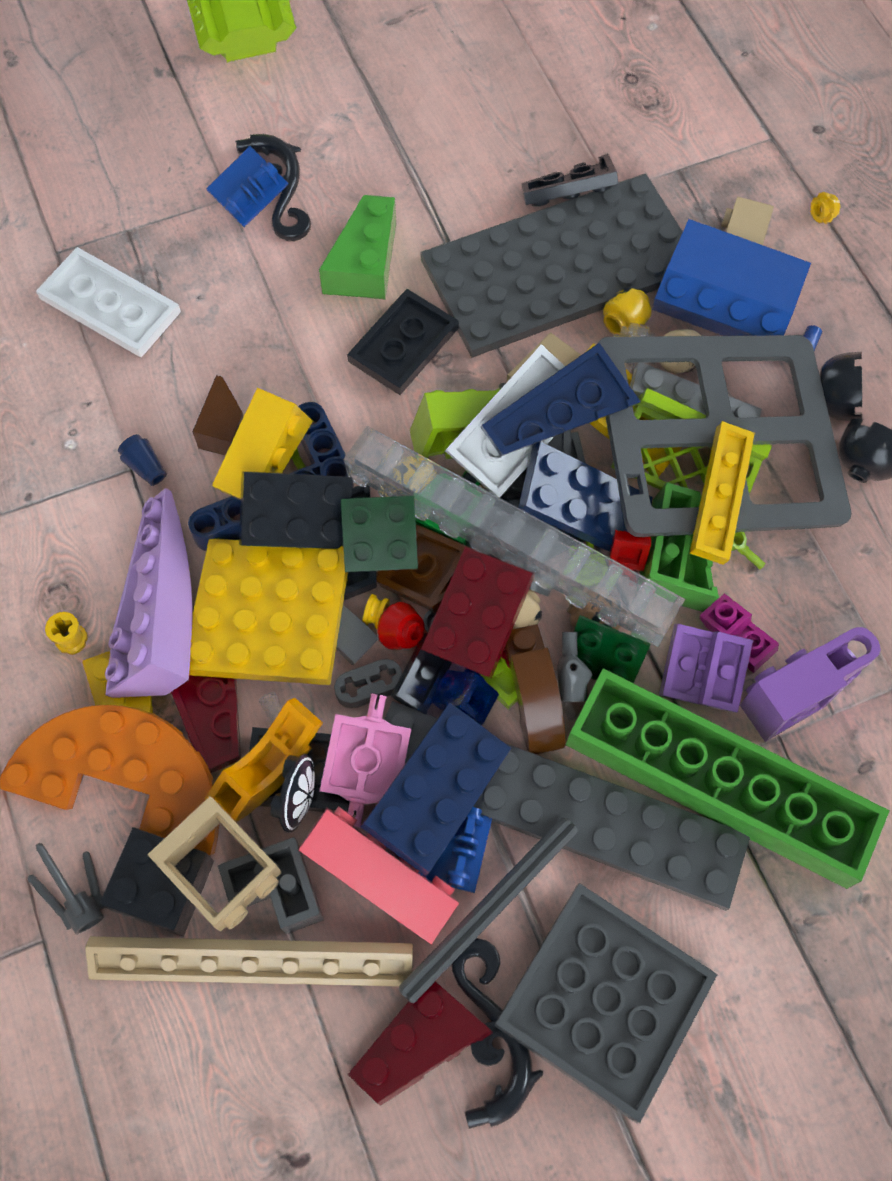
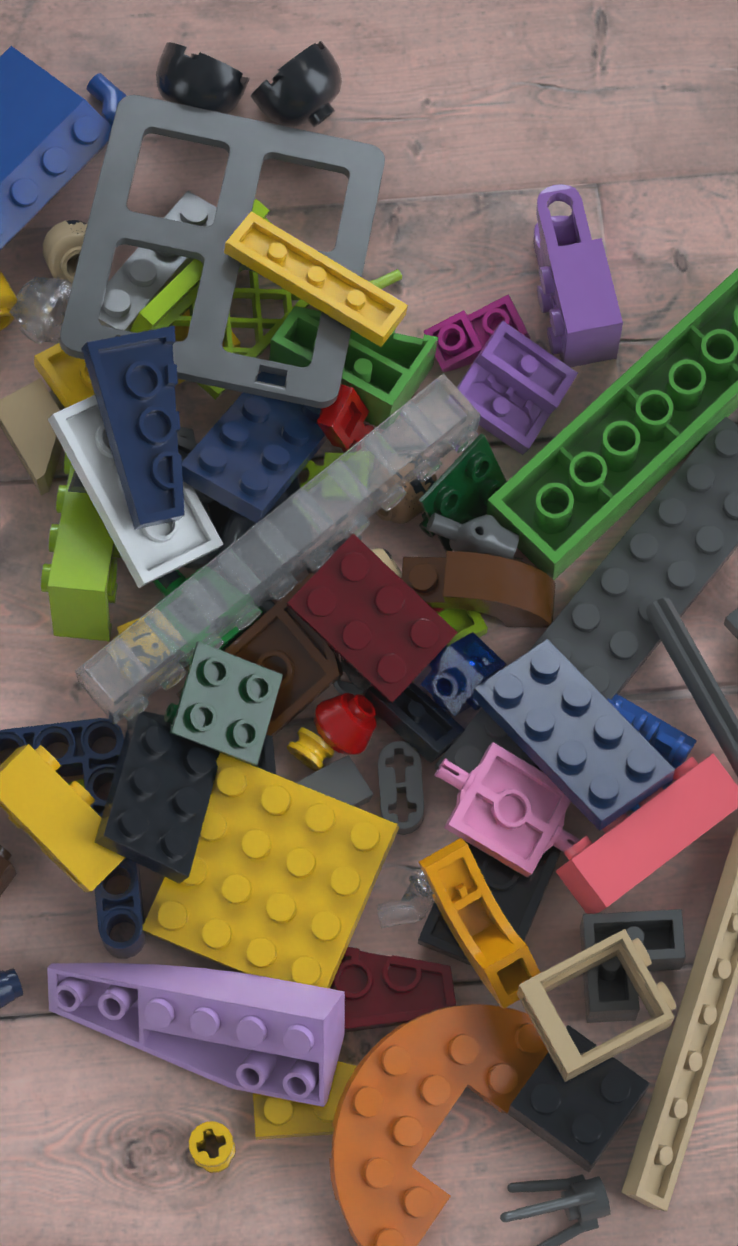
camera: 70 degrees left, 5 degrees up
(296, 792) = (515, 885): black dish -> none

